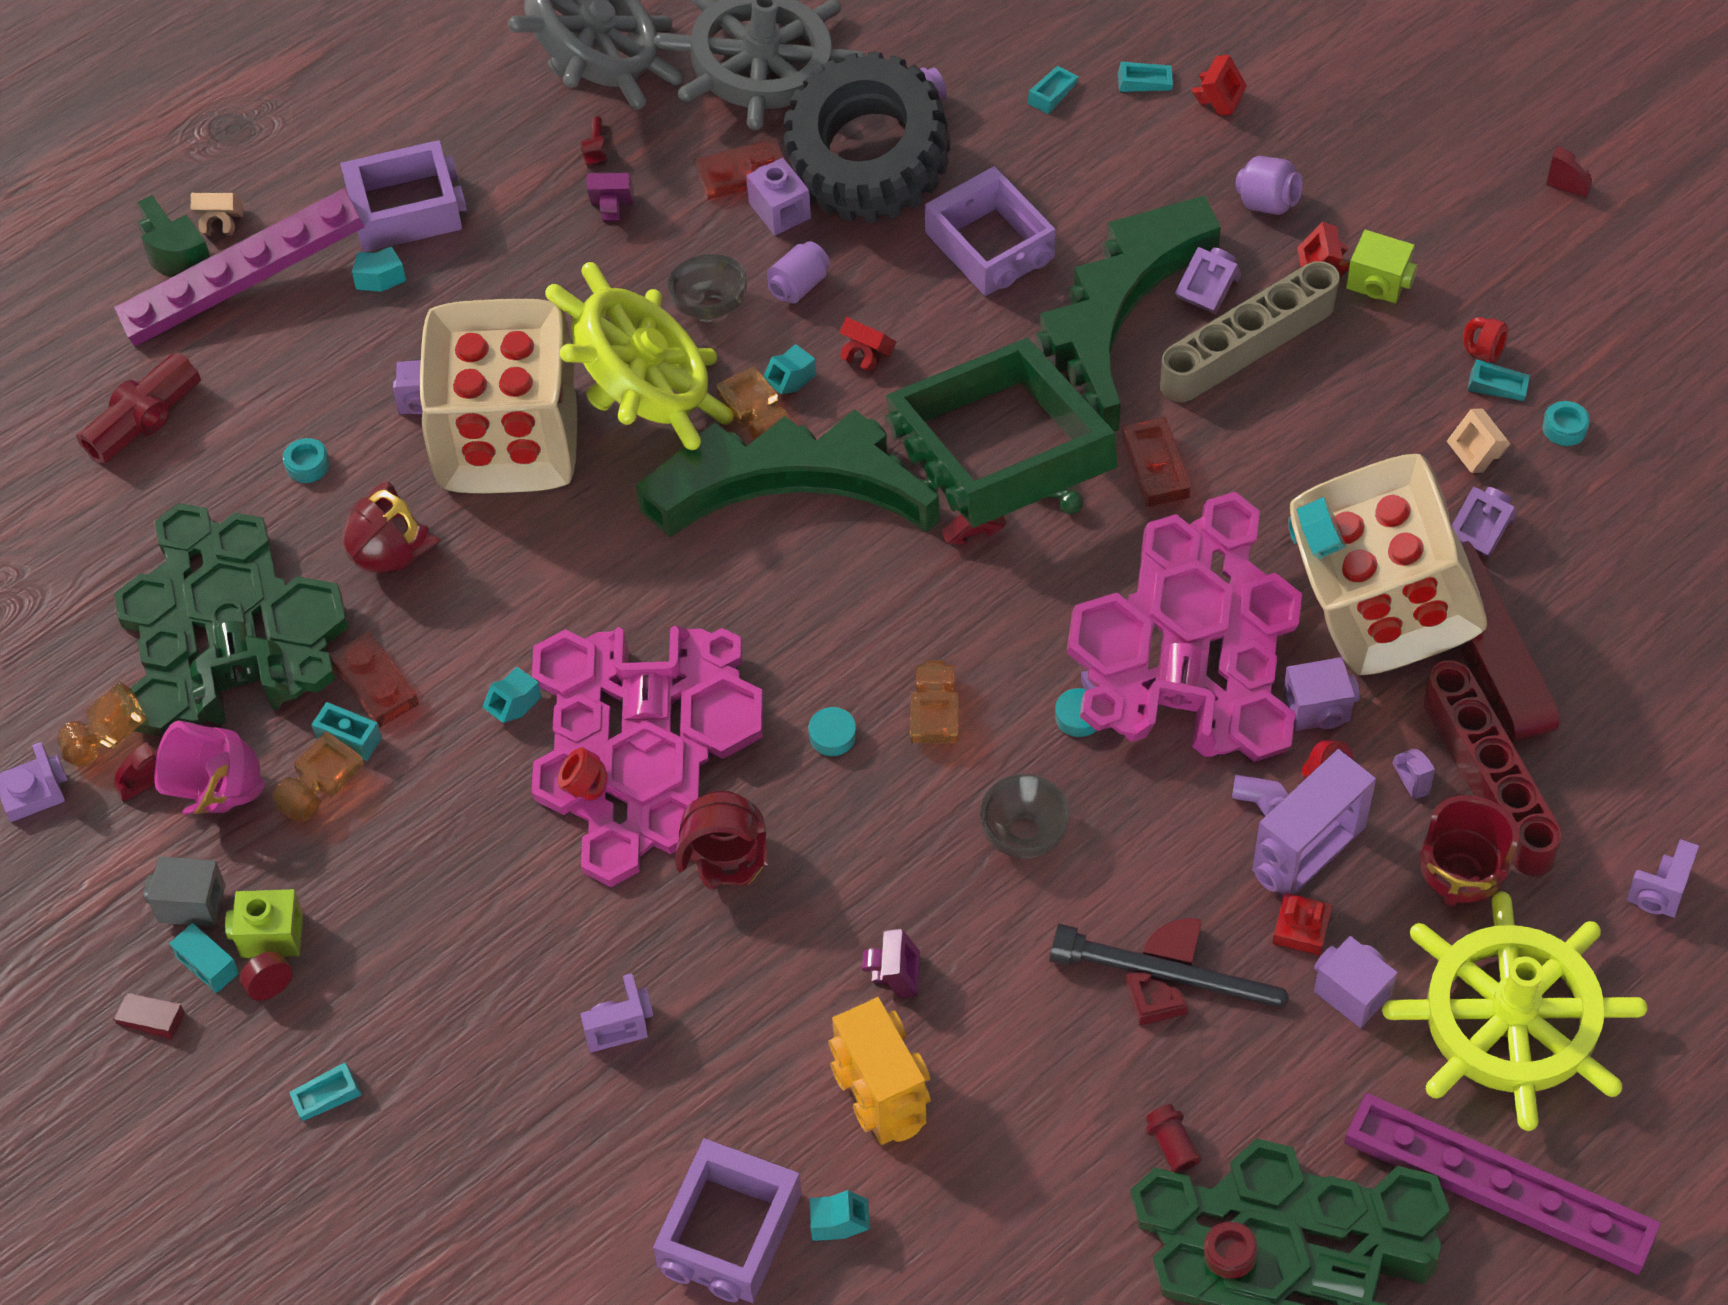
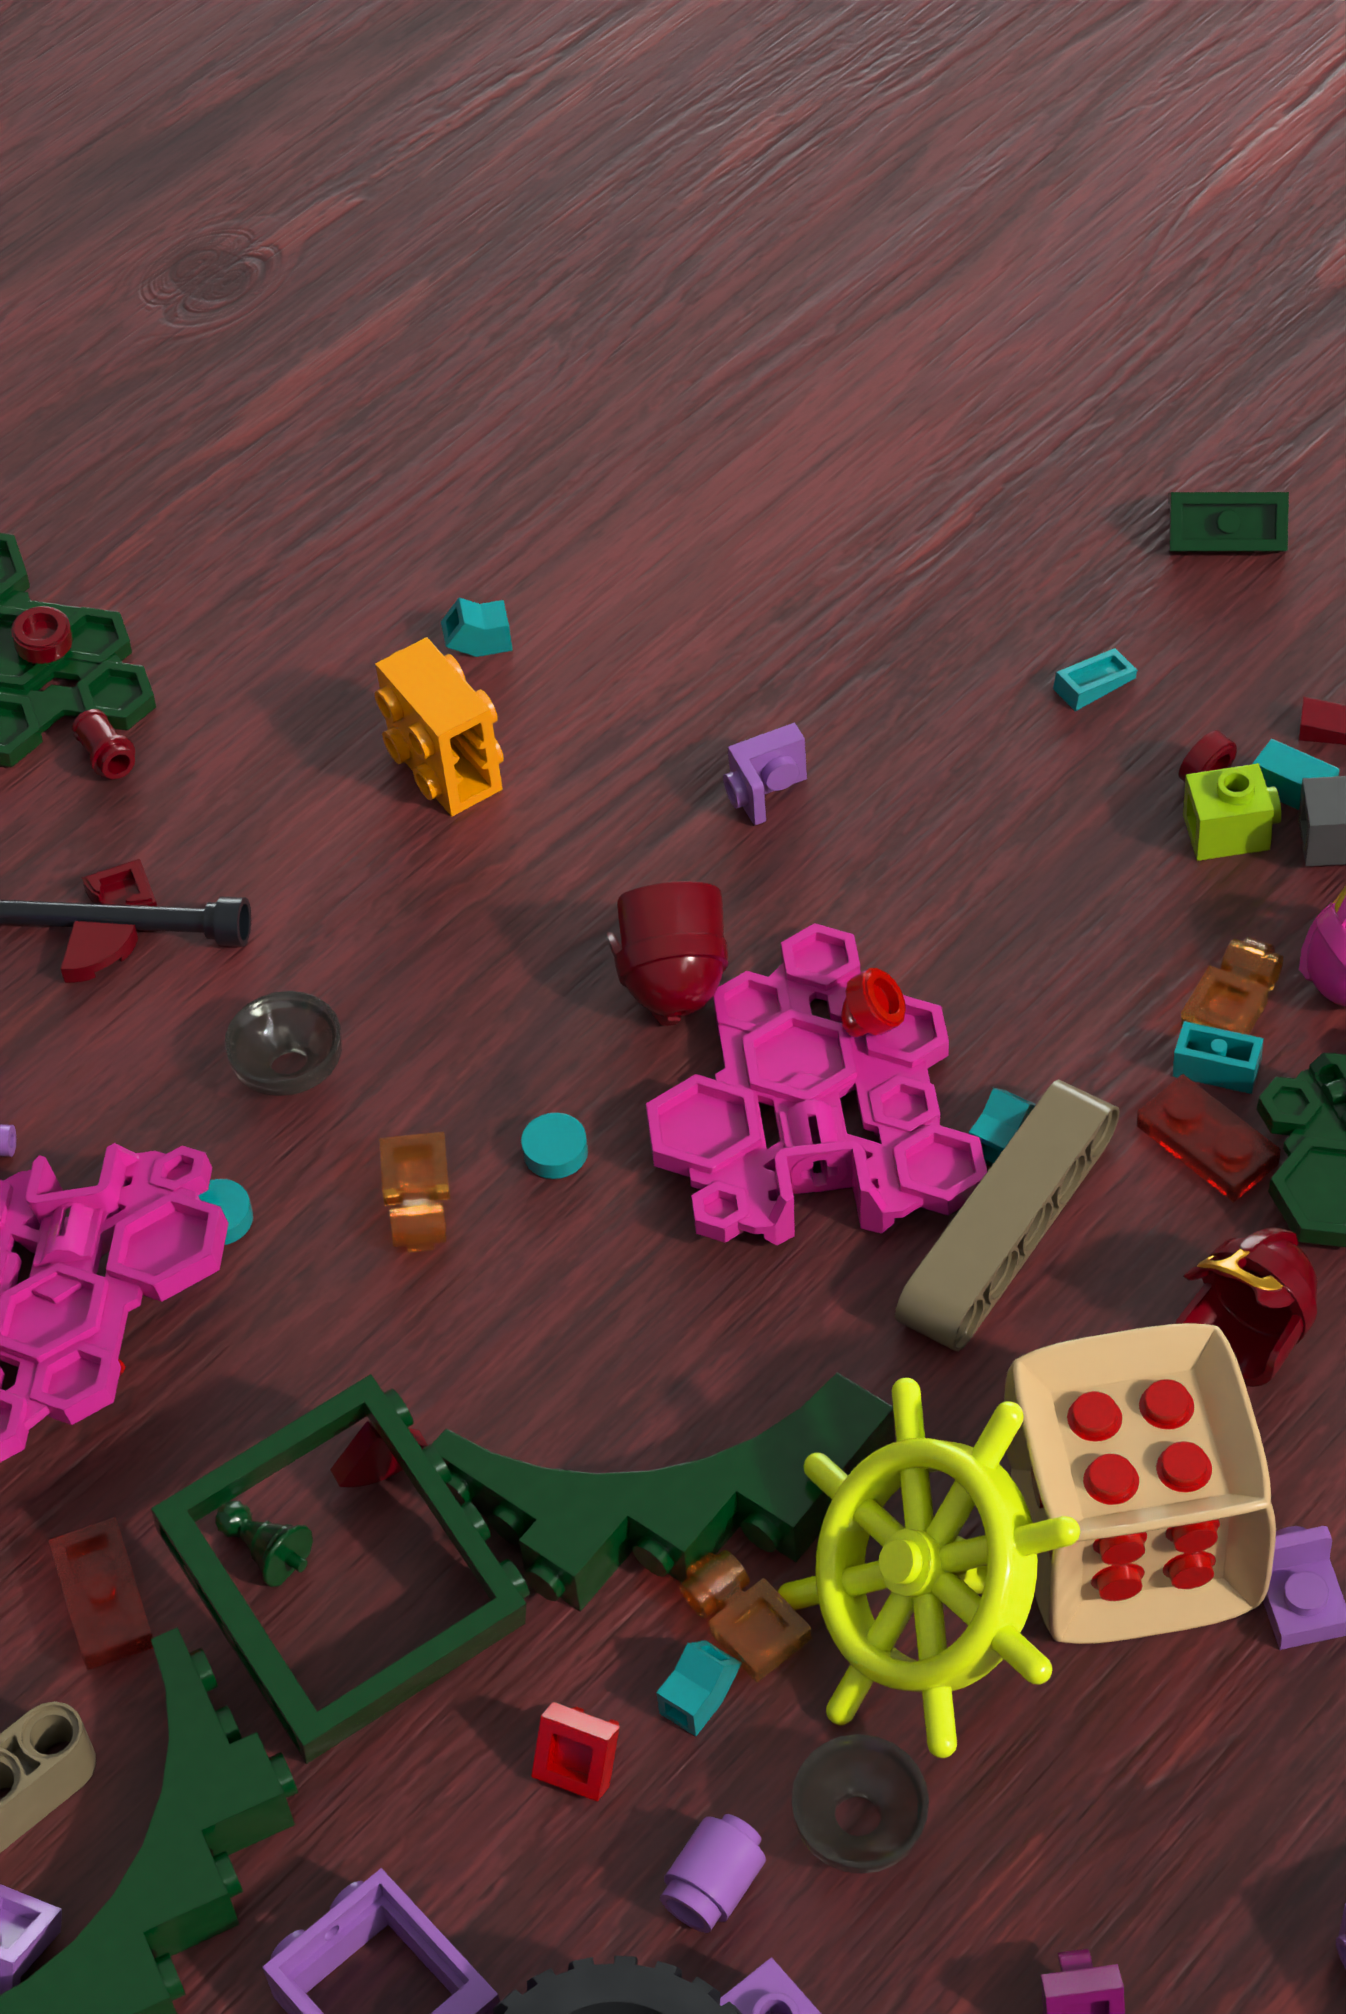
camera: 175 degrees right, 5 degrees down
(155, 1240) = (1228, 521): none -> dark green panel
(543, 609) = (1007, 1215): none -> dark tan beam
(745, 1175) = (614, 646): medium lavender window -> none
(895, 963) = (439, 867): magenta tile -> none

